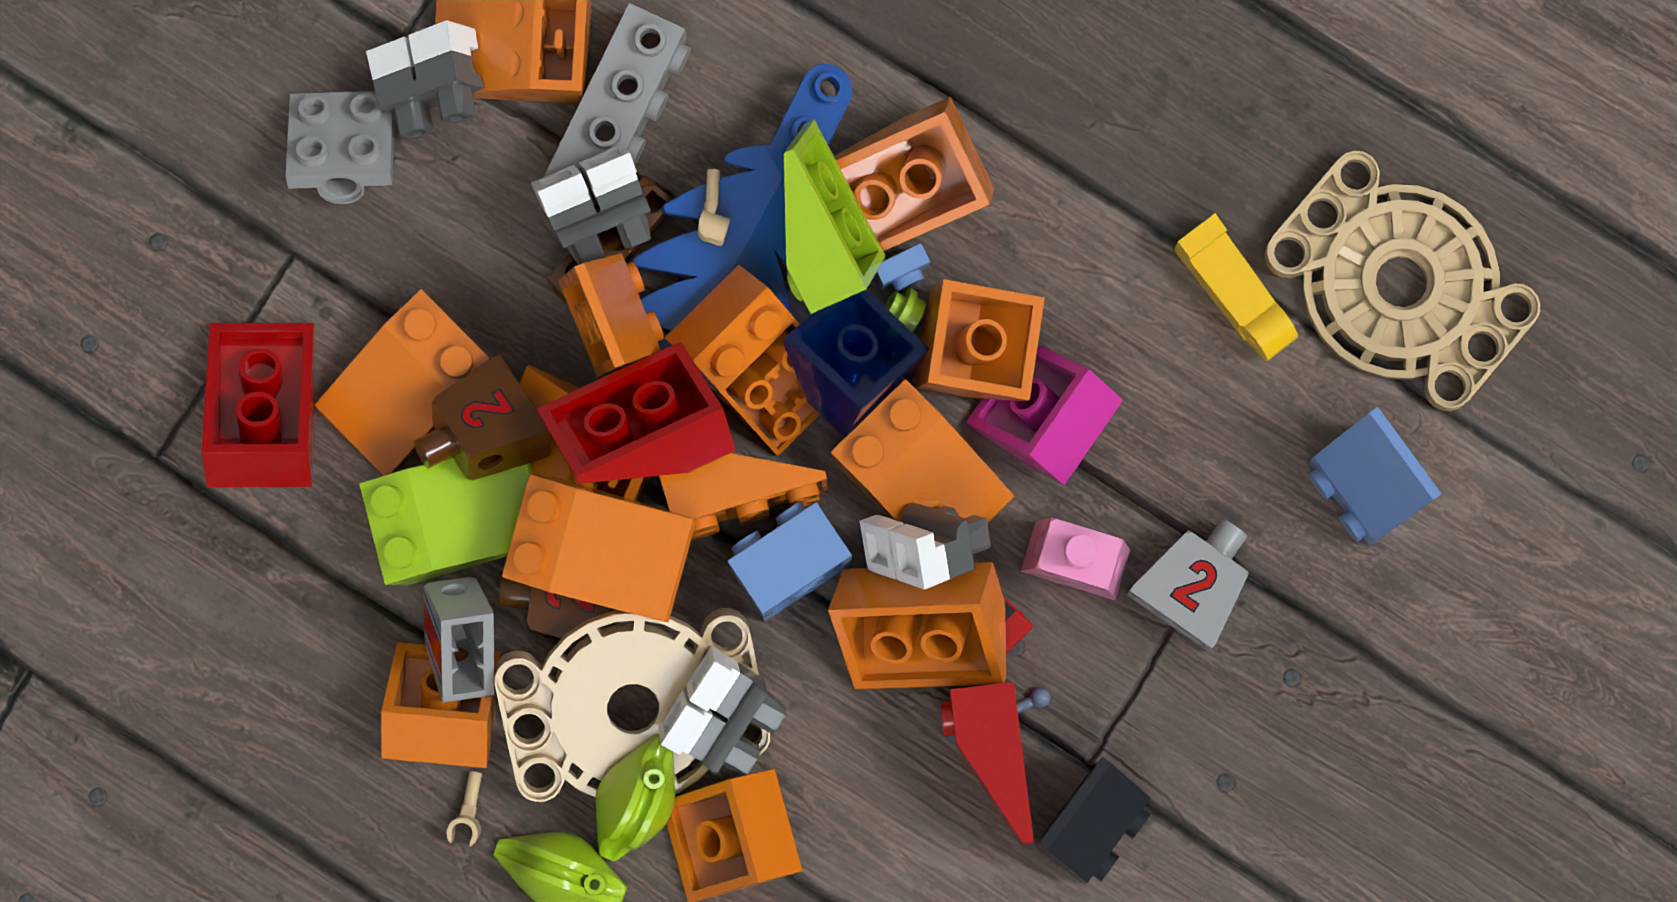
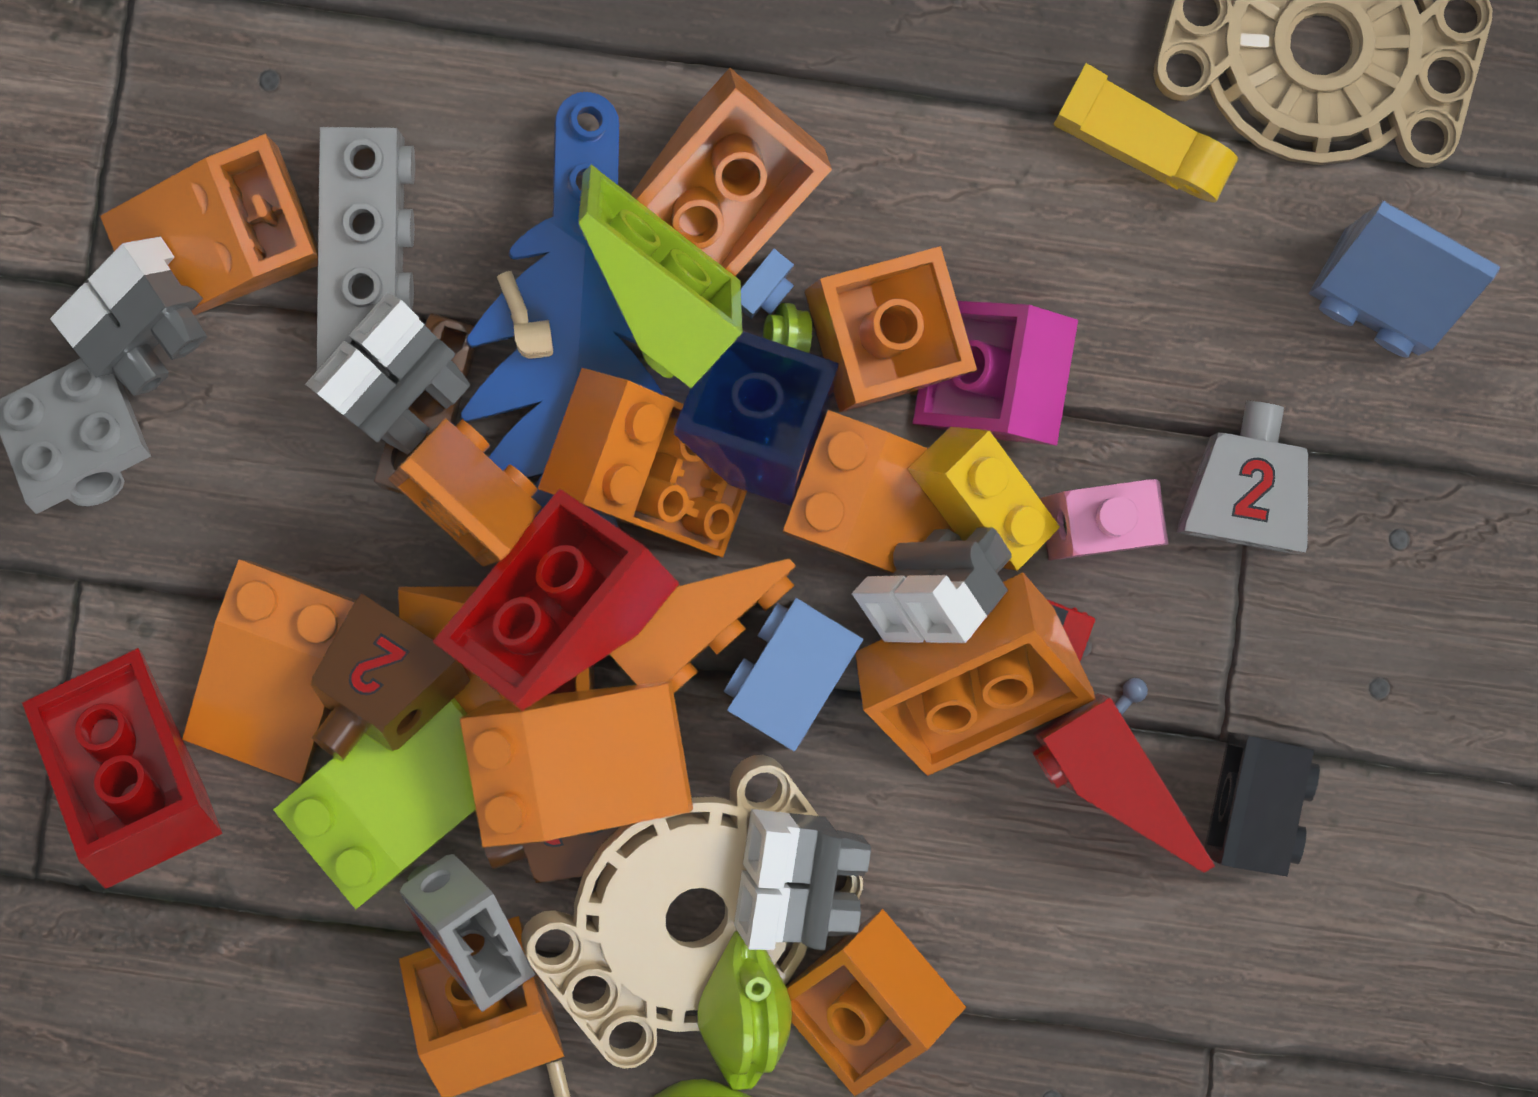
camera: 25 degrees left, 5 degrees up
(991, 485) = (980, 488): none -> yellow brick

